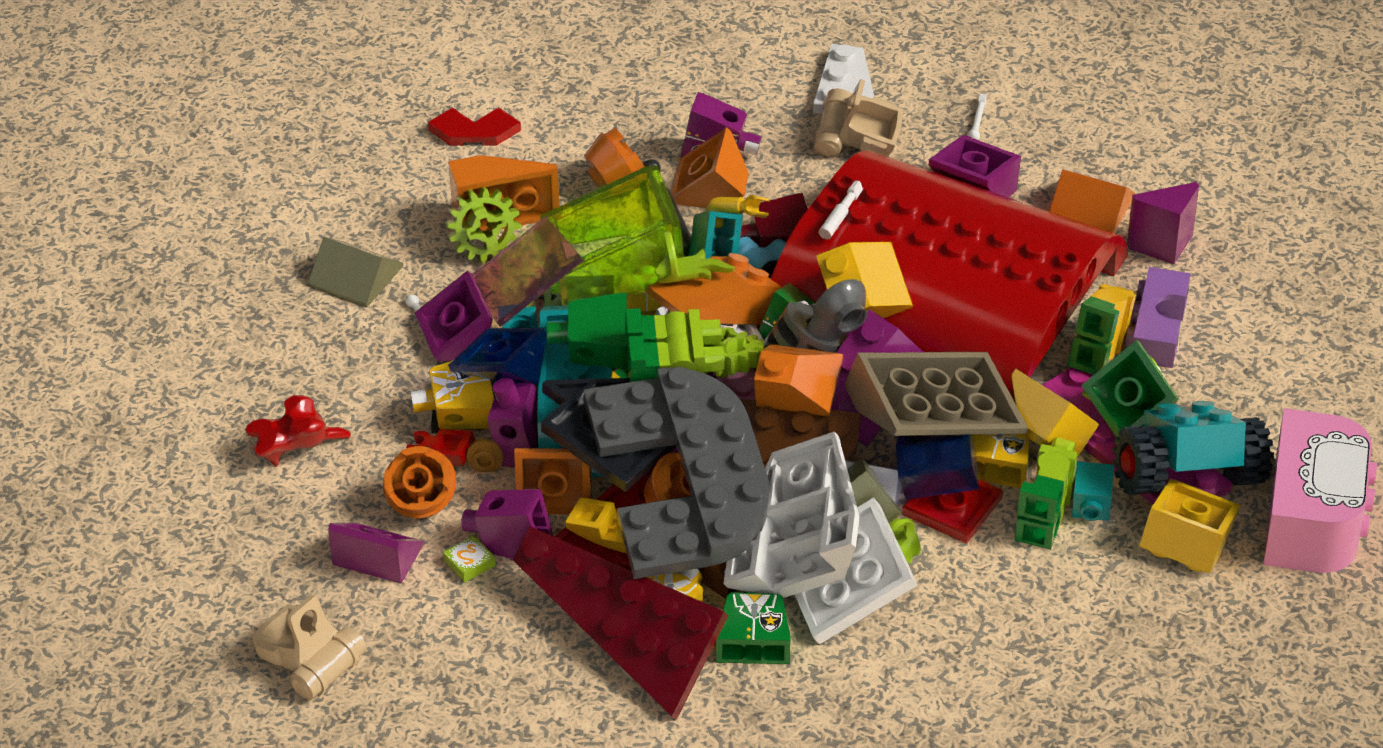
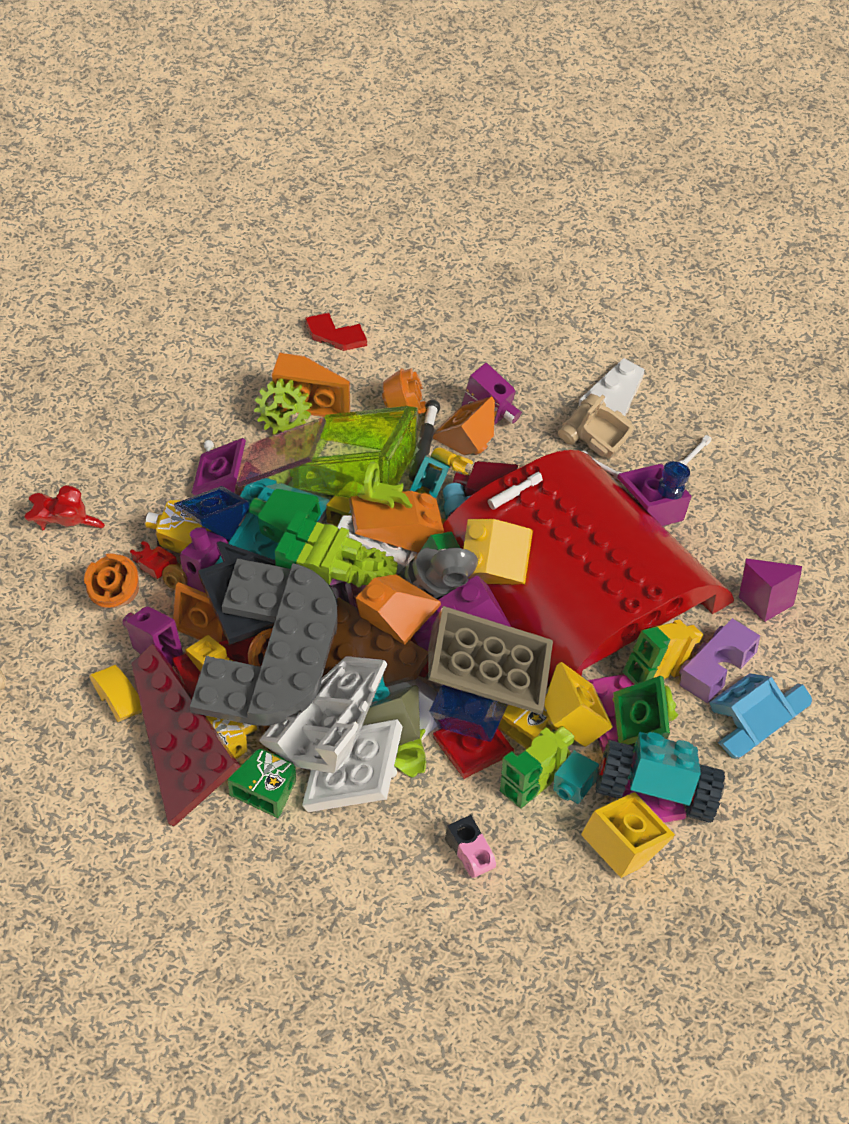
camera: 25 degrees right, 5 degrees up
(351, 271) = (183, 407): olive slope -> none
(372, 550) = (58, 615): magenta slope -> none
(469, 558) = (116, 648): tile -> none
(516, 603) = (117, 691): none -> yellow slope
(998, 140) = (673, 480): none -> clear blue wheel
(1030, 604) = (470, 846): none -> leg
(1091, 200) = (727, 548): orange slope -> none
(1235, 350) = (757, 711): none -> dark azure plate
(1319, 492) = (736, 849): bright pink brick -> none

